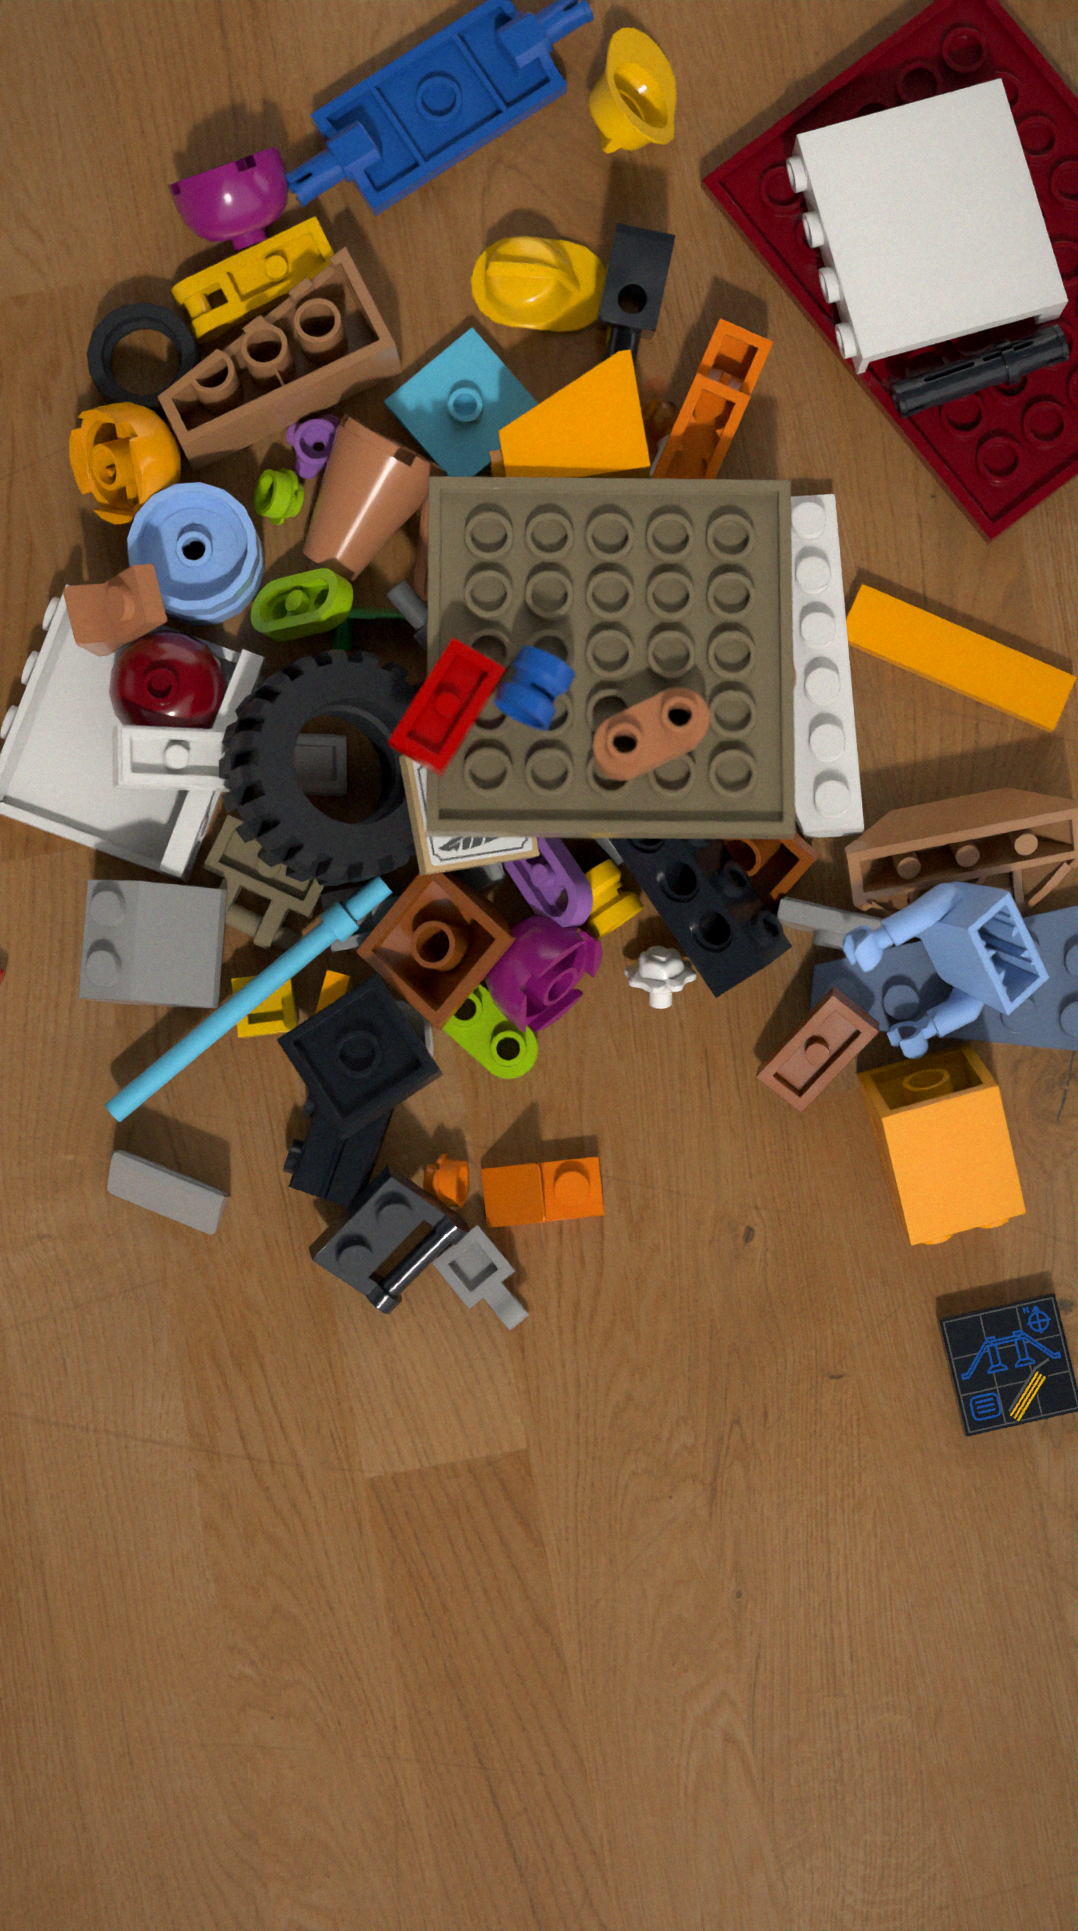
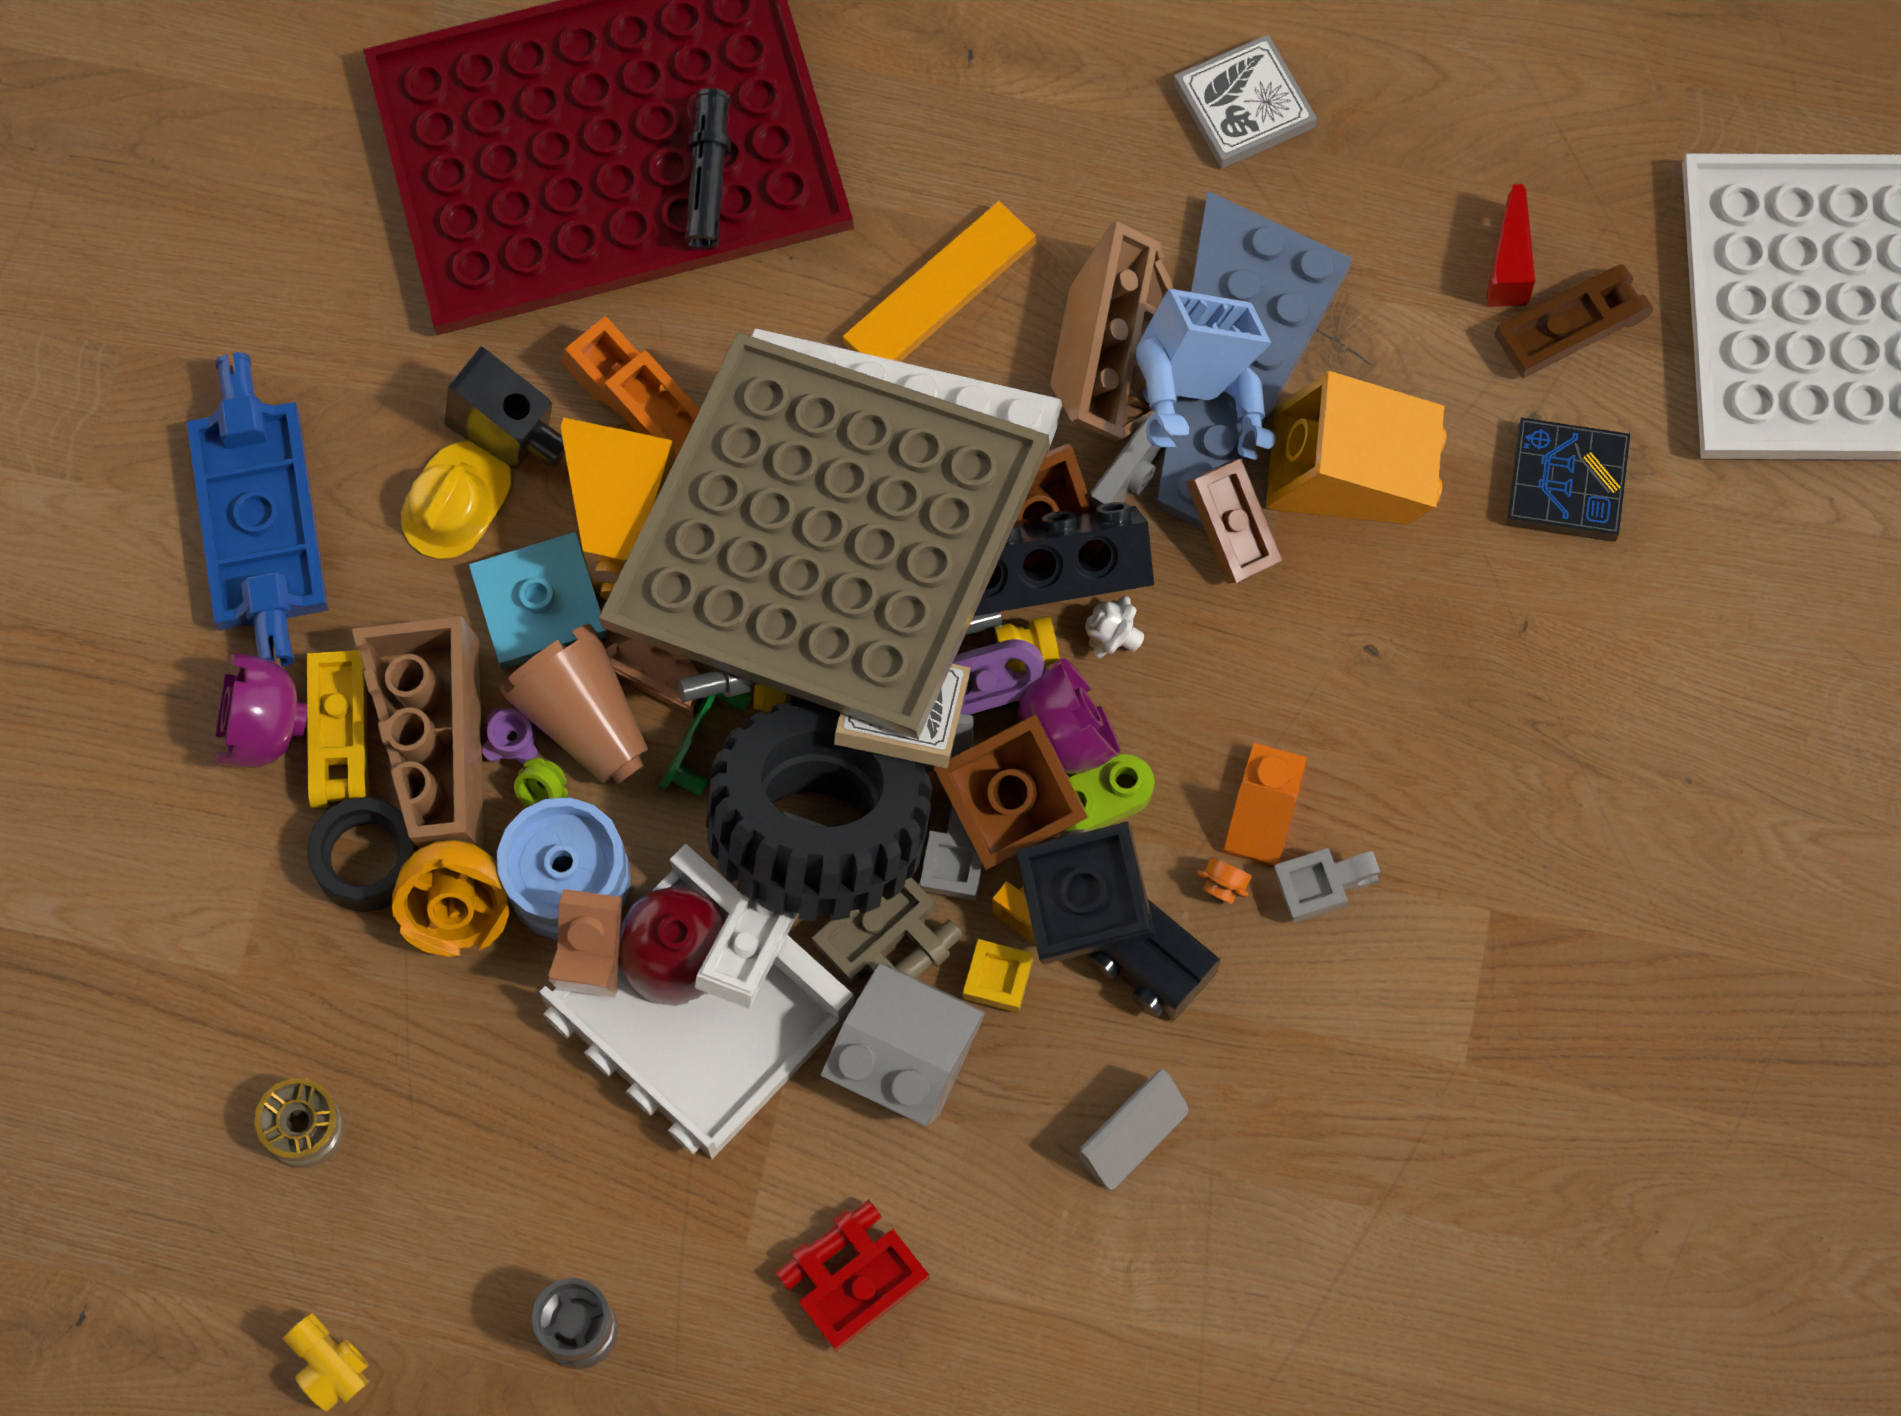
camera: 70 degrees left, 15 degrees down
(302, 605) = (652, 792): lime plate -> none
(337, 922) = (953, 875): medium azure bar -> none
(375, 1227) = (1244, 948): black plate -> none
(447, 707) = (815, 667): red plate -> none
(534, 688) = (830, 588): blue wheel -> none
(634, 95) = (334, 355): yellow piece -> none
(653, 734) = (911, 510): nougat plate -> none
(926, 223) = (563, 159): white panel -> none

